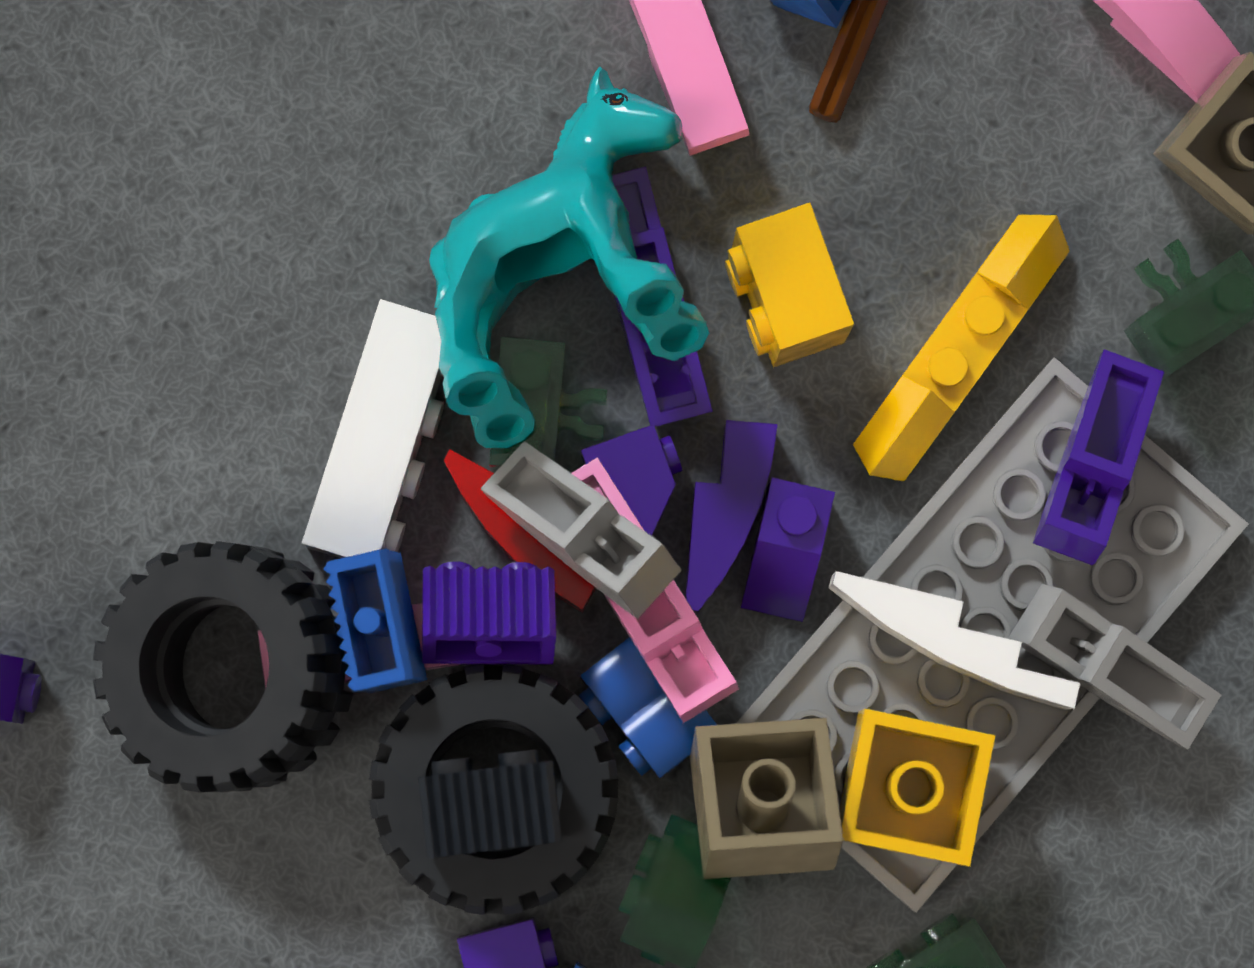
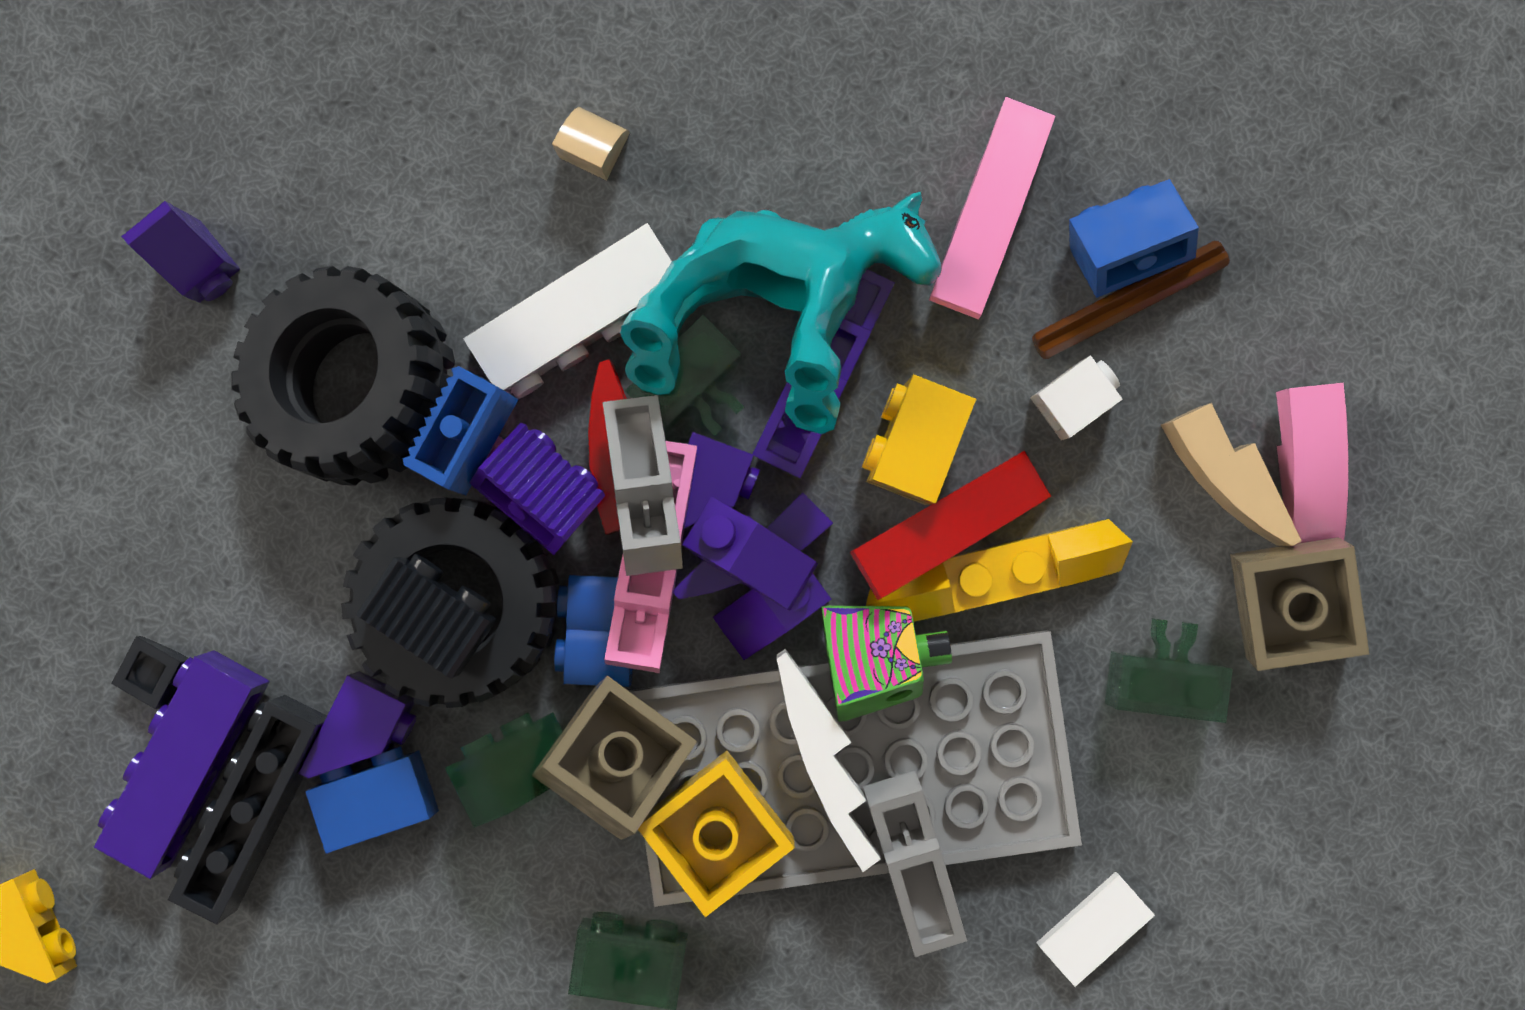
camera: 45 degrees right, 5 degrees up
(264, 273) = (590, 142): none -> tan brick
(728, 510) = (750, 553): none -> dark purple slope
(882, 337) = (950, 525): none -> red slope
(896, 129) = (1078, 397): none -> white brick
(920, 509) = (877, 657): none -> torso
(1093, 84) = (1231, 476): none -> tan slope
(1099, 458) = (1022, 722): dark purple slope -> none

